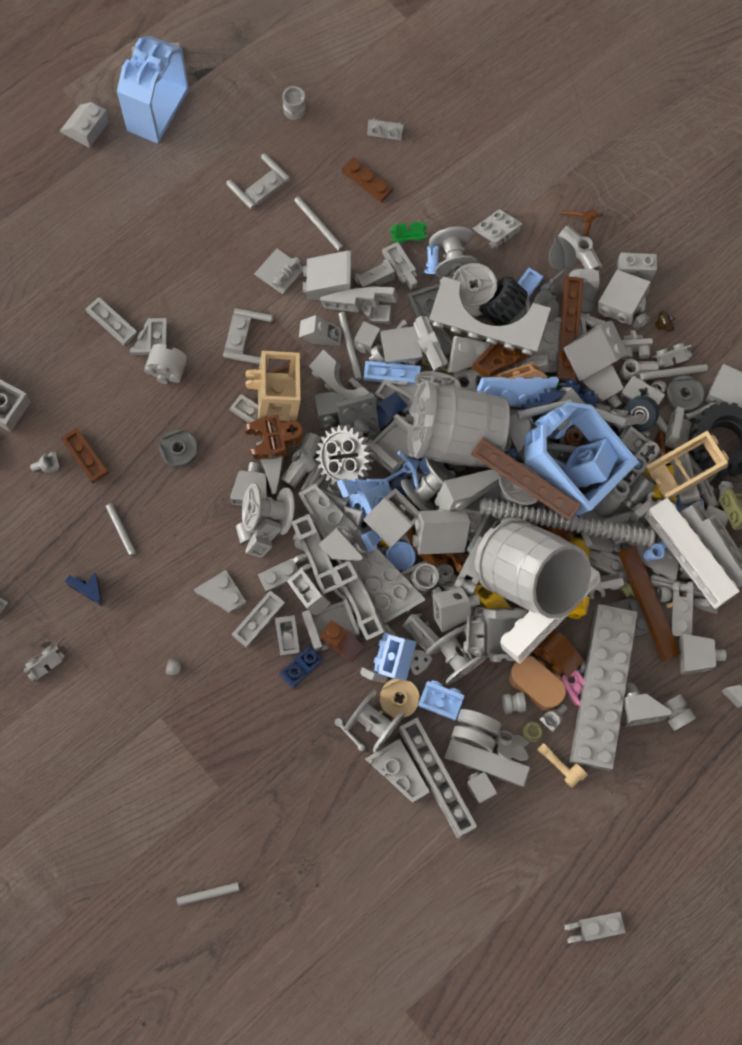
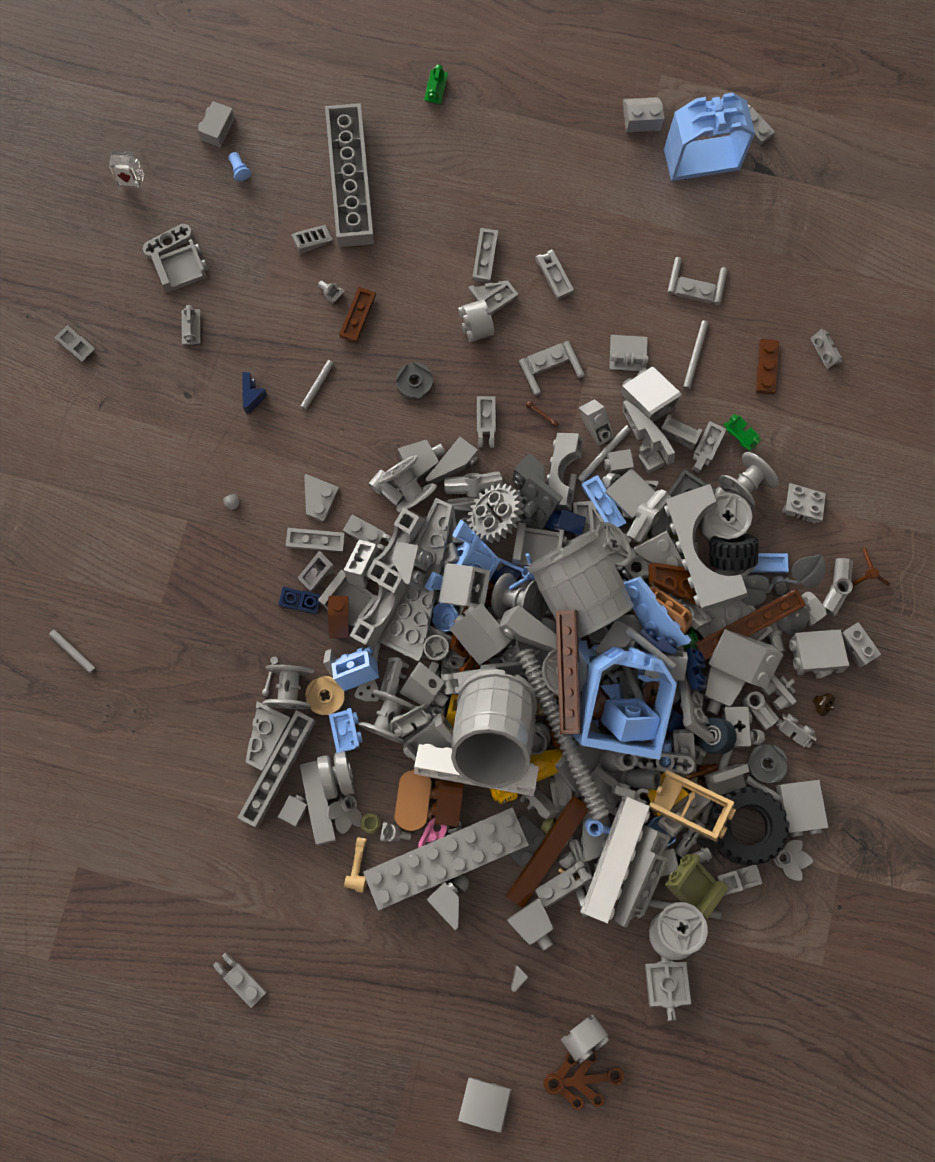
camera: 55 degrees right, 5 degrees up
(49, 657) = (163, 400): light grey hinge -> none
(170, 280) = (554, 274): none -> light grey plate
(261, 540) = (382, 497): light grey slope -> none
(277, 391) = (515, 419): tan piece -> none
(282, 433) = (472, 447): reddish brown piece -> none
(294, 103) = (790, 259): light grey wheel -> none
(433, 259) = (731, 468): light blue pin -> none
(514, 703) = (383, 792): light grey wheel -> none
(640, 321) = (809, 682): light grey tile -> none
(673, 372) = (780, 741): light grey bar -> none
(679, 713) = (467, 936): light grey wheel -> none

